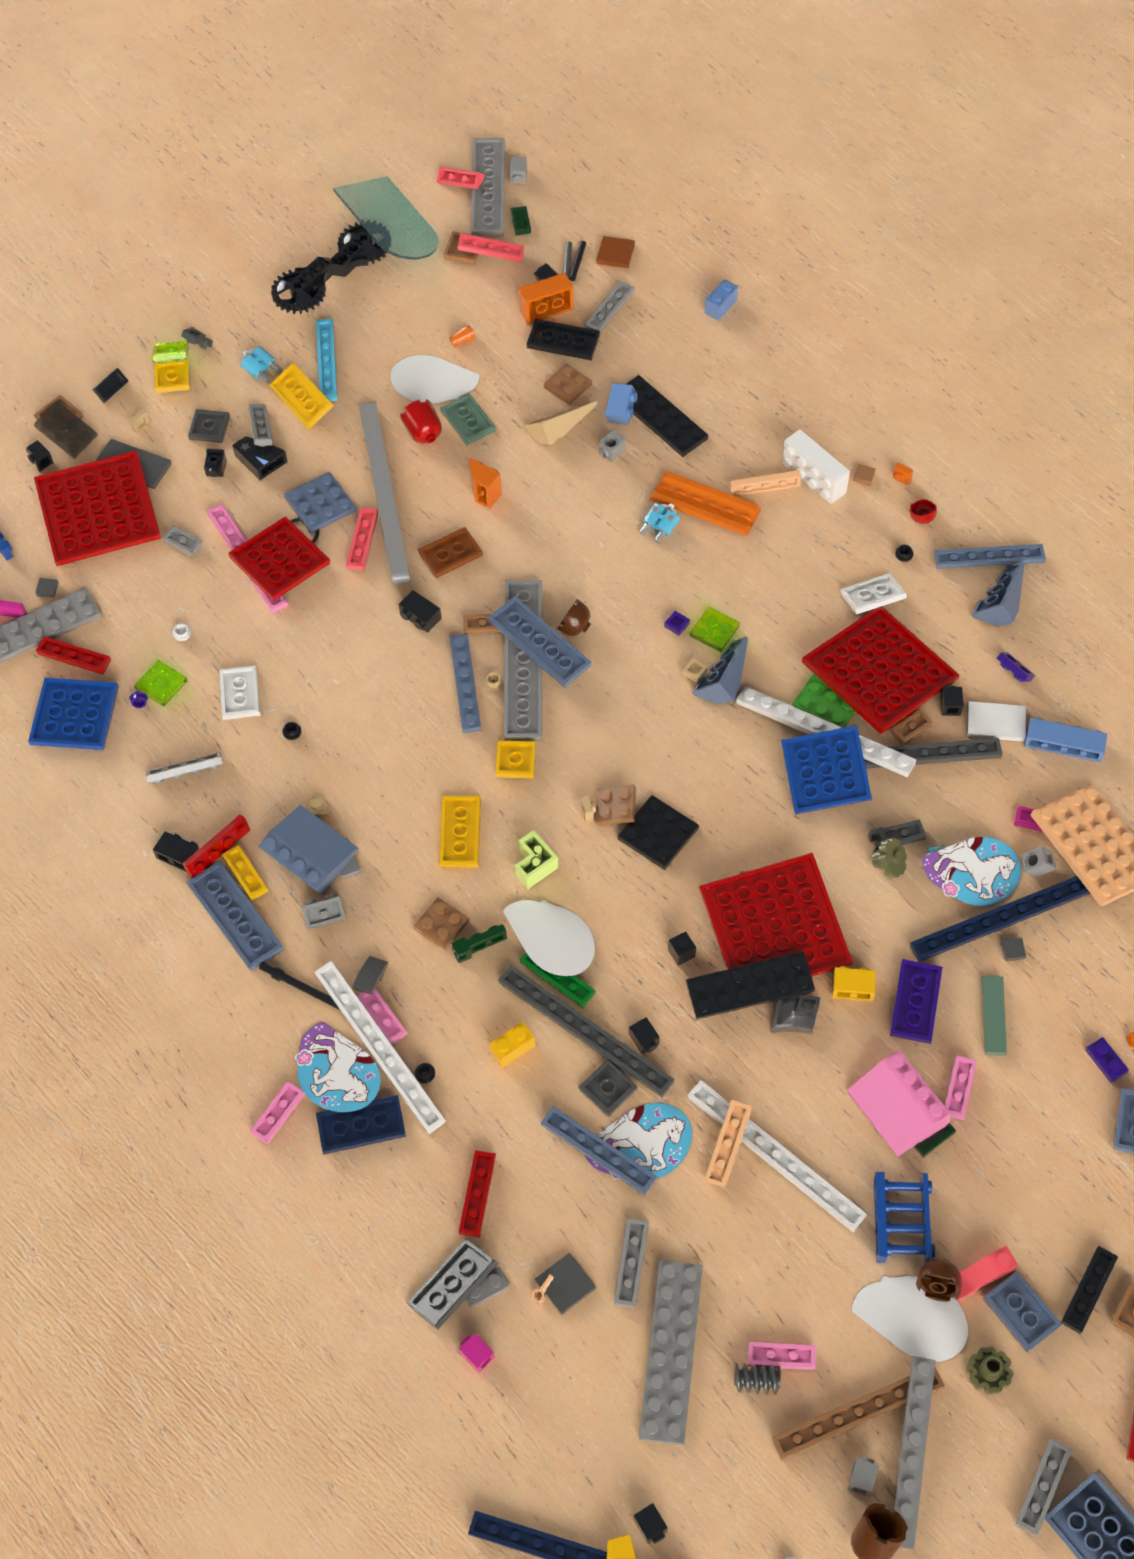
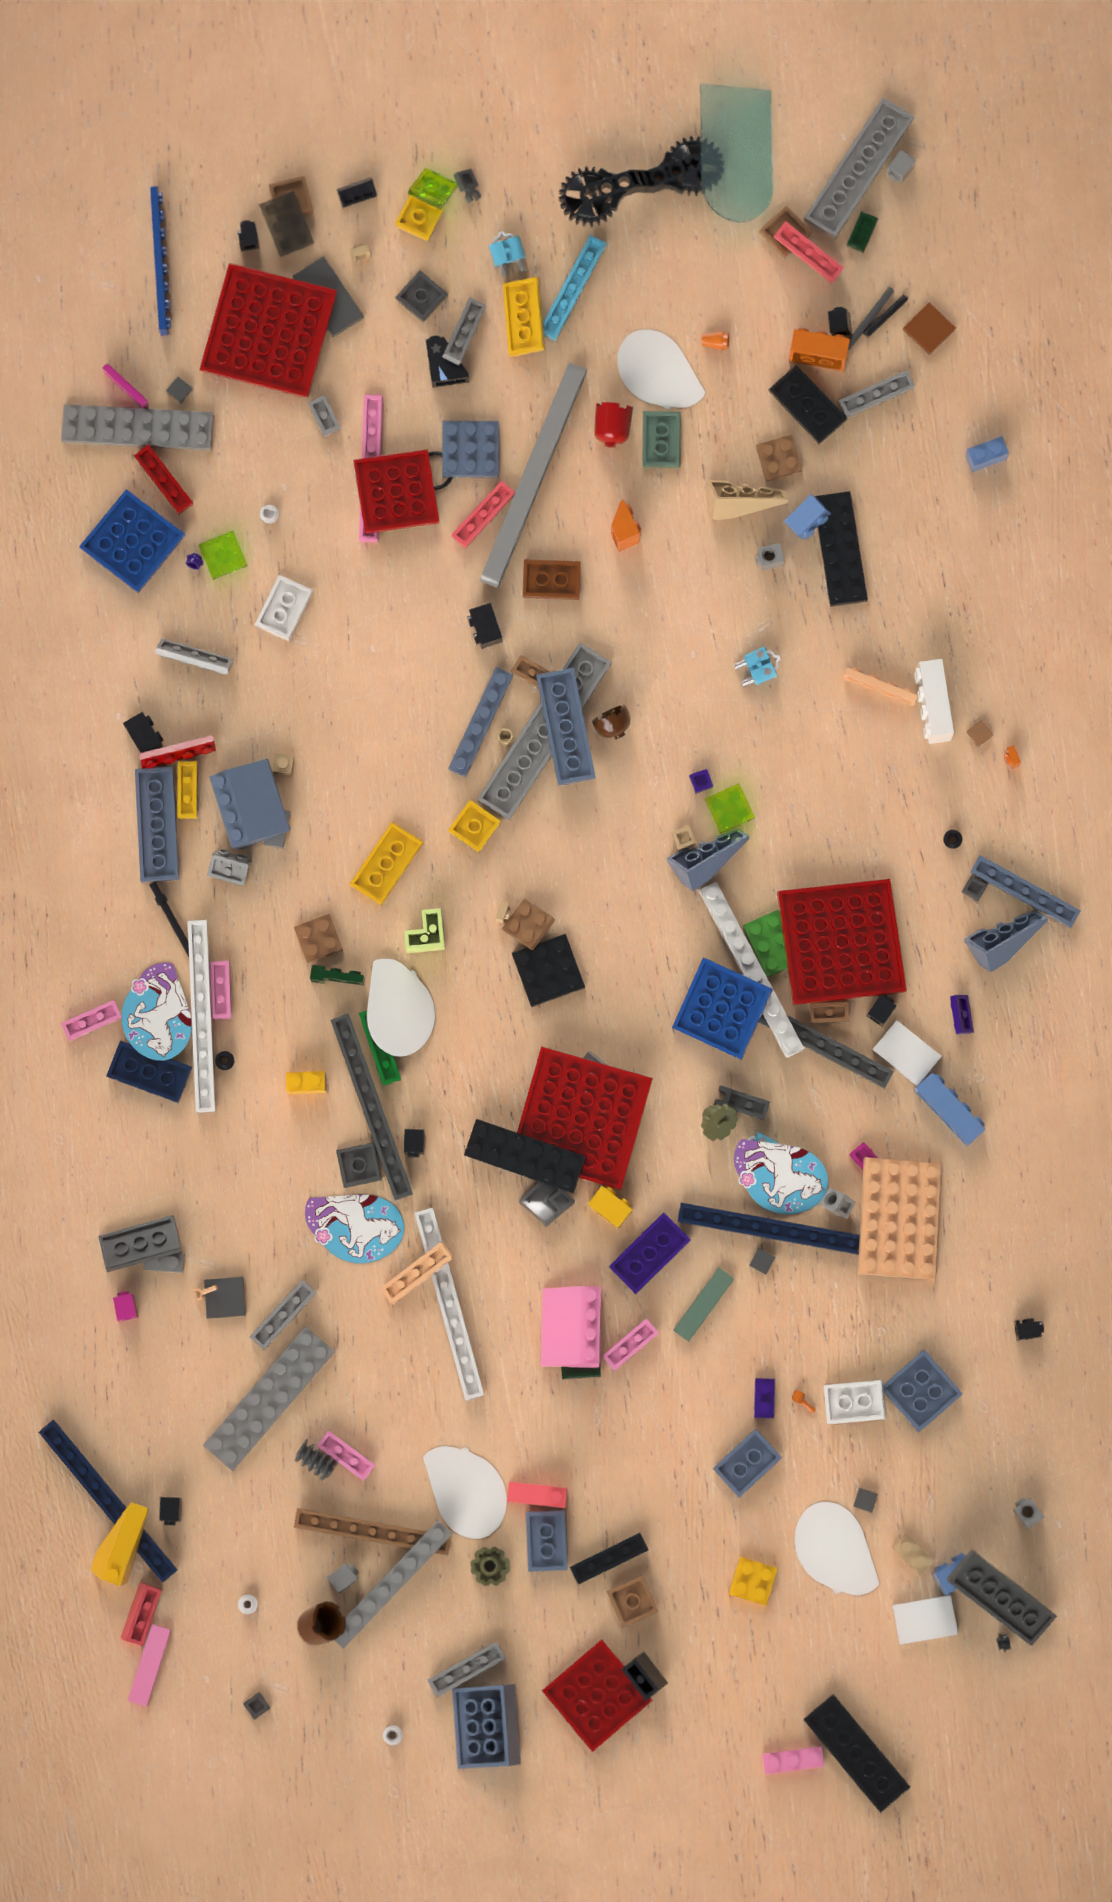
camera: 35 degrees right, 20 degrees up
(215, 463) = (401, 353): black brick -> none
(292, 726) = (301, 672): black plate -> none
(370, 974) = (232, 949): dark grey slope -> none
(459, 178) = (837, 141): coral slope -> none
(477, 1194) = (203, 1185): red plate -> none
(599, 1150) = (316, 1212): sand blue plate -> none
(682, 948) = (494, 1088): black brick -> none
(706, 503) = (813, 672): orange plate -> none
(873, 593) = (893, 863): white tile -> none
(883, 1227) = (490, 1413): blue fence -> none
(923, 511) = (1000, 808): red hair -> none
(939, 1280) = (501, 1478): reddish brown cylinder -> none
(949, 577) = (974, 888): none -> dark grey tile

